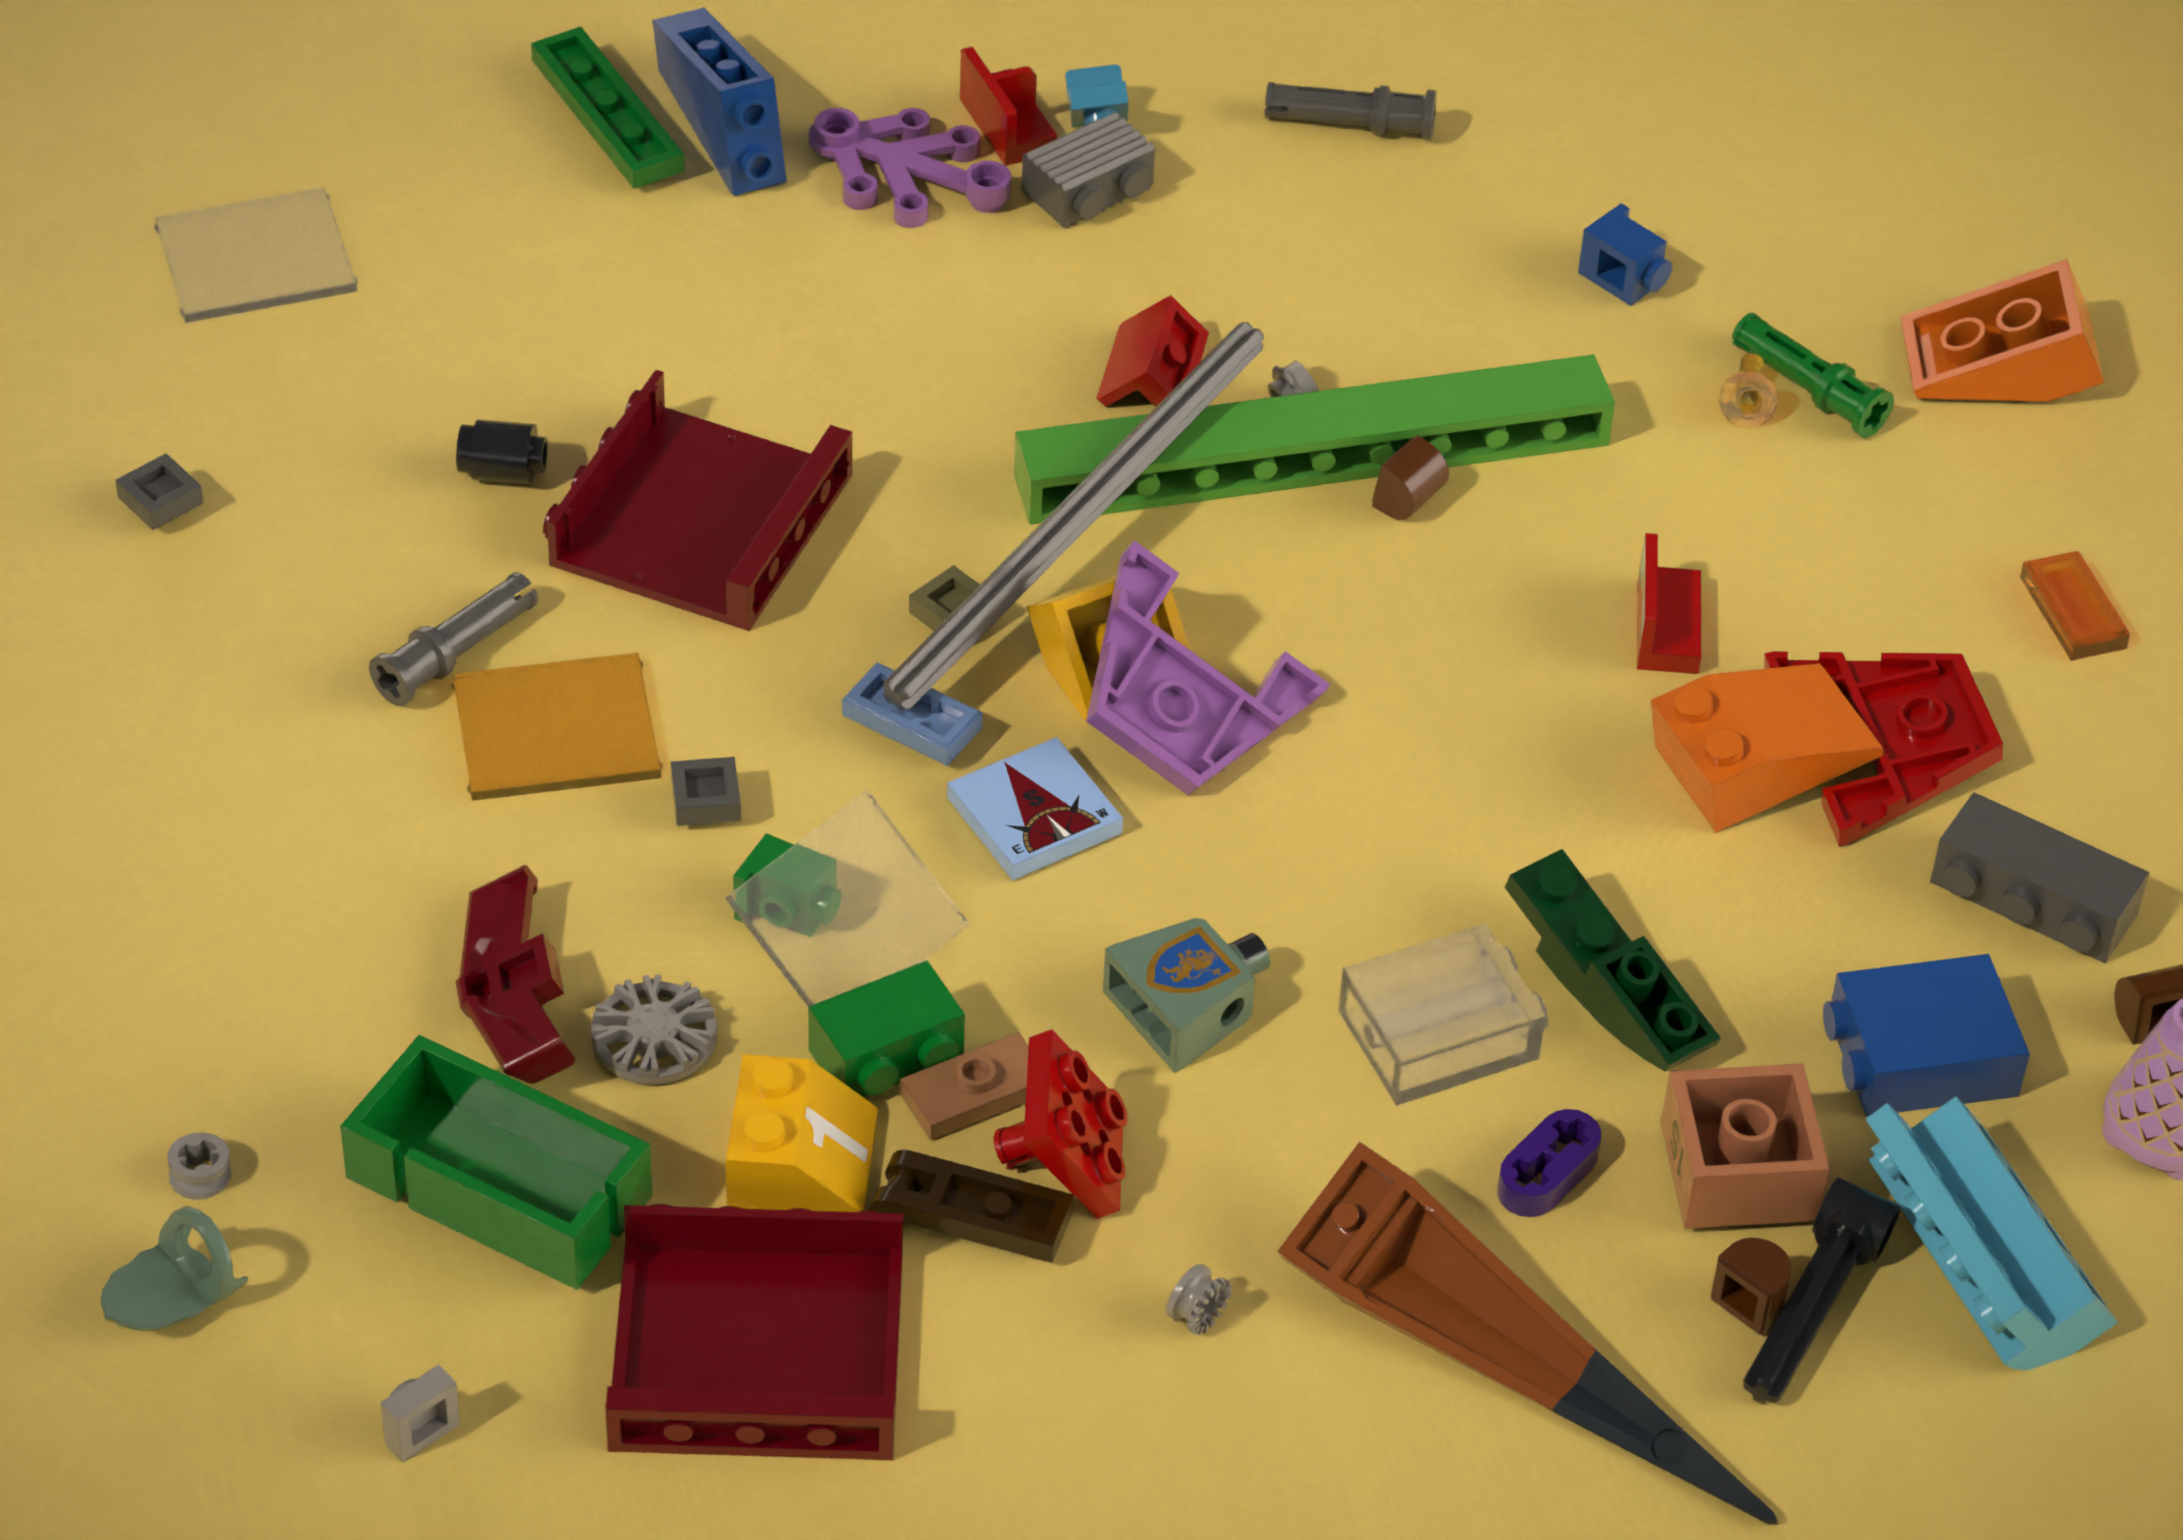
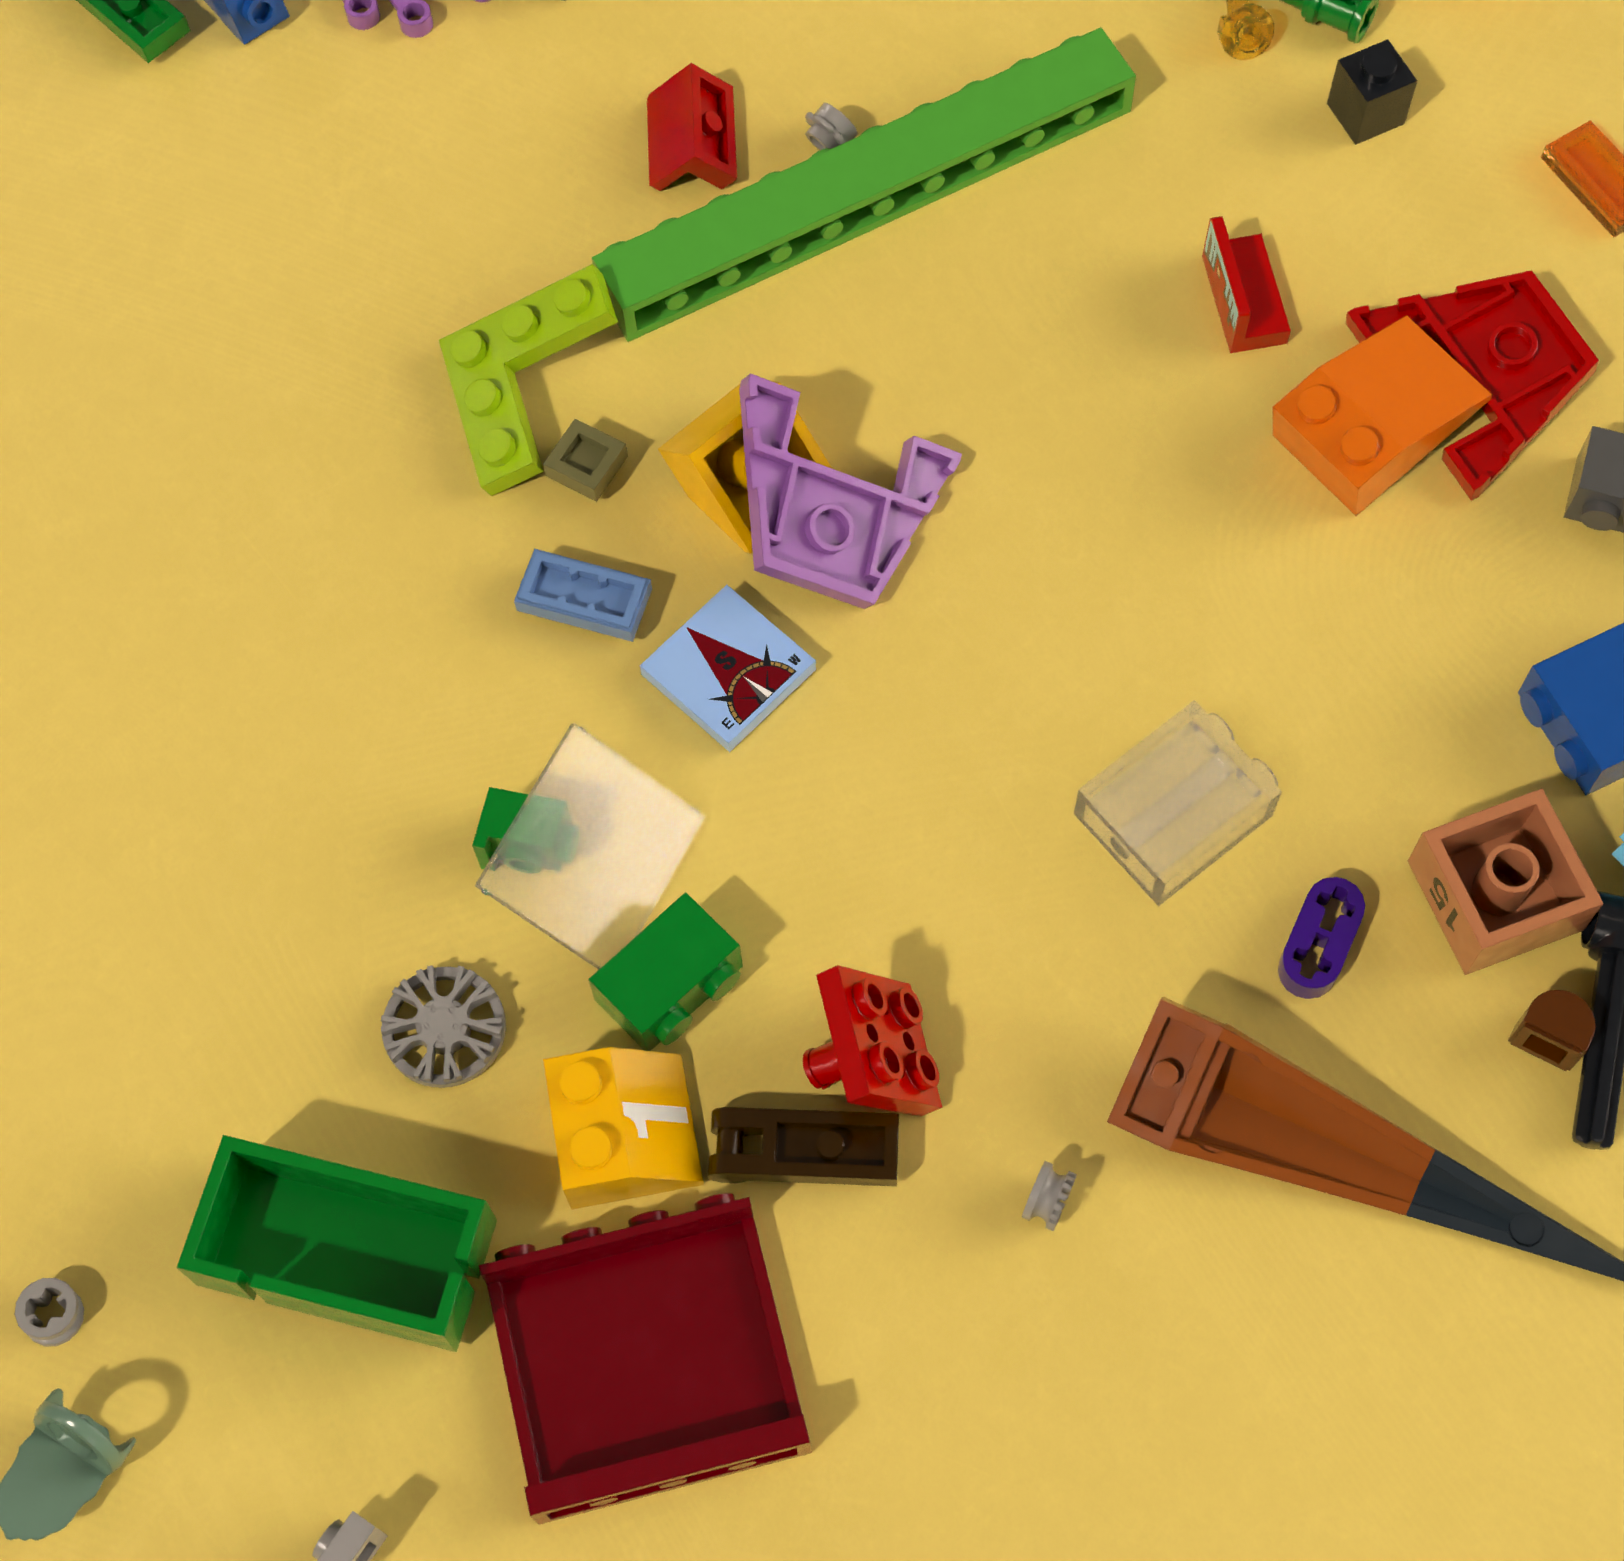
camera: 10 degrees left, 20 degrees up
(434, 651) = (108, 648): dark grey pin -> none
(501, 451) = (107, 401): black brick -> none
(510, 978) = (289, 1013): dark red plate -> none
(556, 726) = (248, 696): clear yellow piece -> none
(694, 509) = (310, 414): dark red panel -> none
(705, 791) = (414, 739): dark grey plate -> none
(885, 496) = (490, 351): none -> lime plate
(968, 1086) = (762, 1003): medium nougat plate -> none
(1071, 518) = (674, 345): axle -> none
(1184, 986) = (931, 839): sand green torso -> none
(1409, 479) = (968, 205): reddish brown brick -> none
(1609, 974) = (1313, 711): dark green slope -> none
(1856, 474) = (1371, 91): none -> brick

